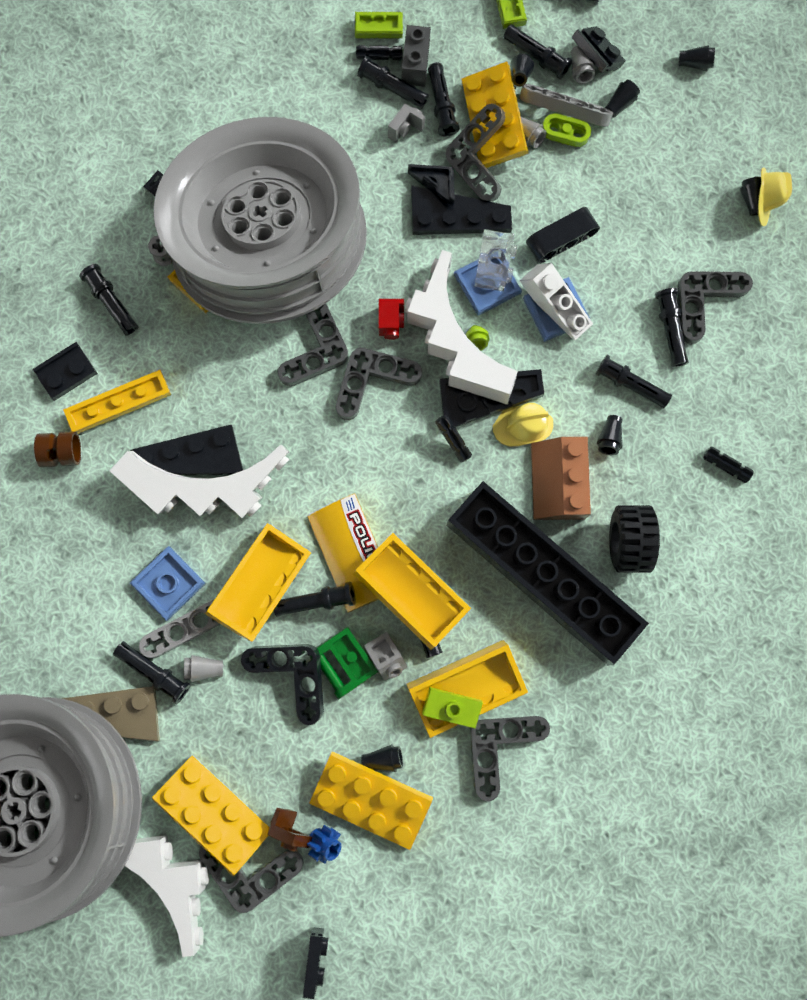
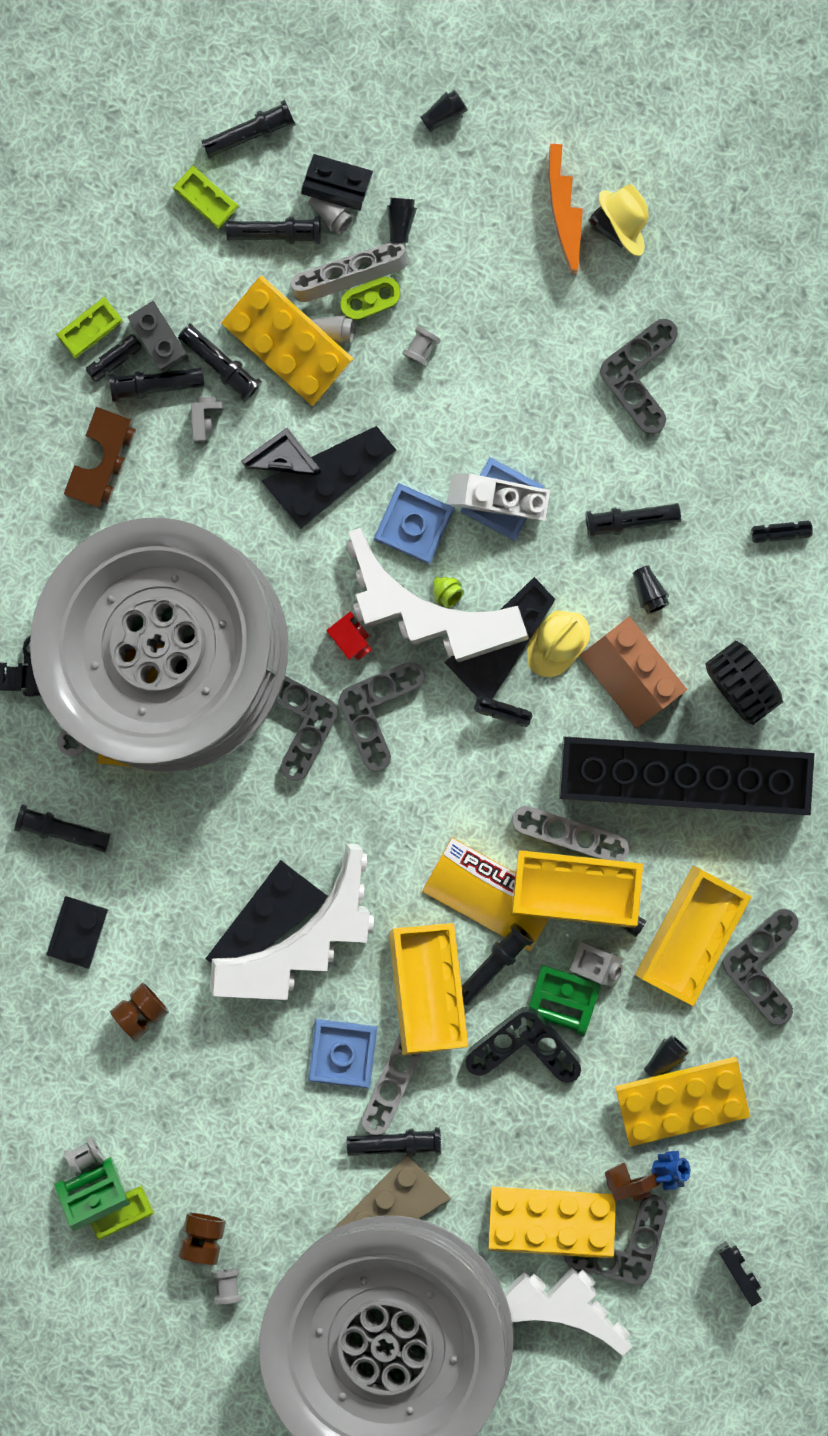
camera: 30 degrees left, 10 degrees up
(117, 402) = (154, 923): yellow plate -> none
(202, 668) = (438, 1105): light grey cone -> none
(341, 93) = (93, 485): none -> reddish brown arch
(439, 552) = (569, 837): none -> light grey beam
(452, 707) = (693, 964): lime plate -> none
(468, 155) = (297, 408): dark grey beam -> none
(498, 246) = (408, 521): clear brick -> none
(521, 69) = (275, 267): black cone -> none
(561, 234) = (451, 417): black beam -> none
(576, 180) = (421, 346): none -> light grey bush
(671, 315) = (619, 422): black pin -> none
(731, 167) = (566, 218): none -> orange slope

